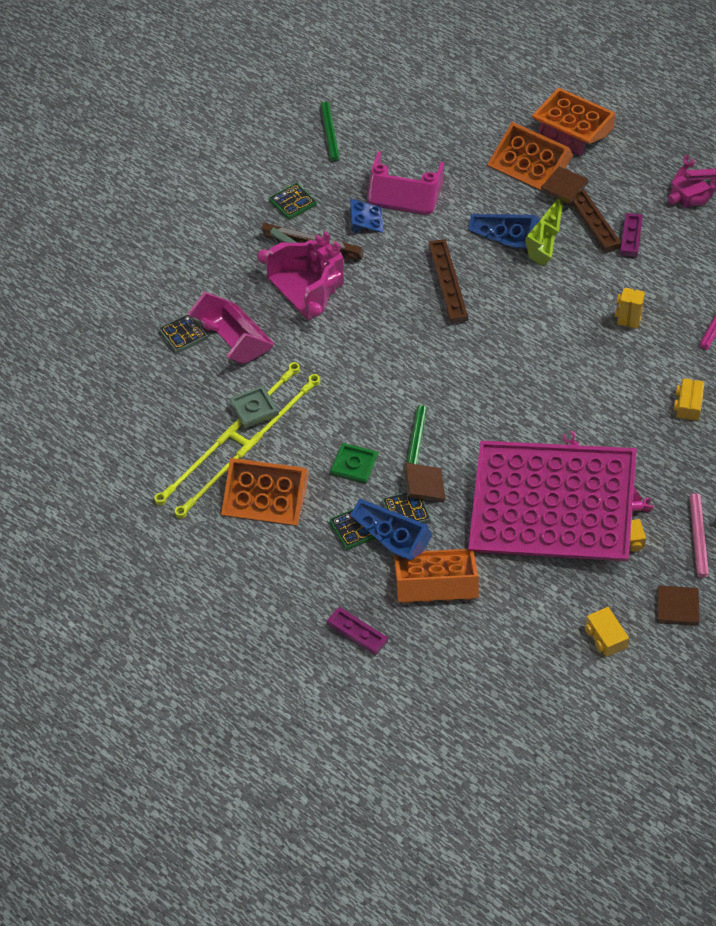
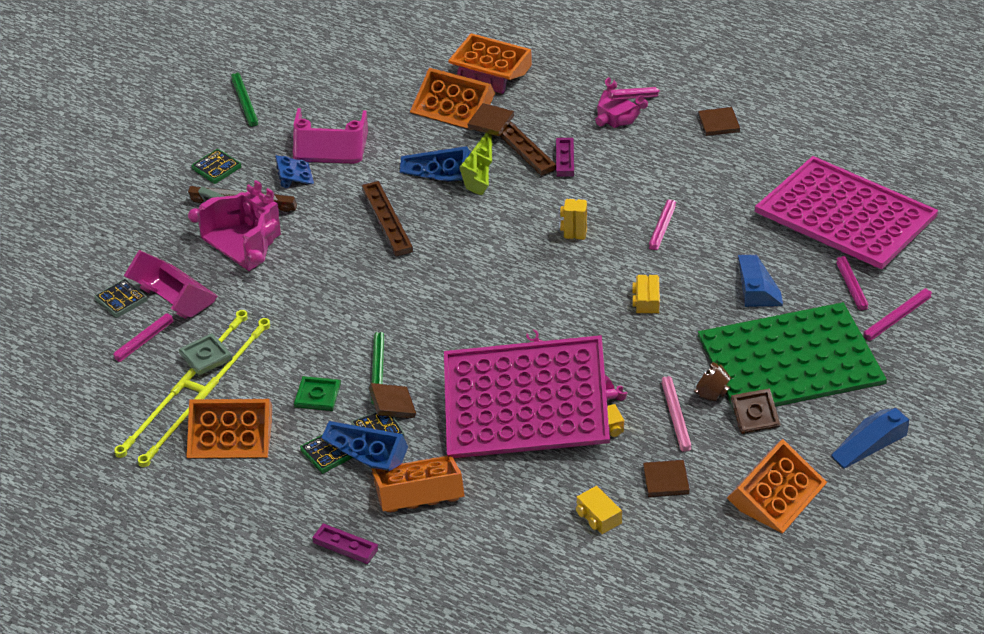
camera: 10 degrees left, 10 degrees down
(197, 379) = (143, 337): none -> dark pink axle

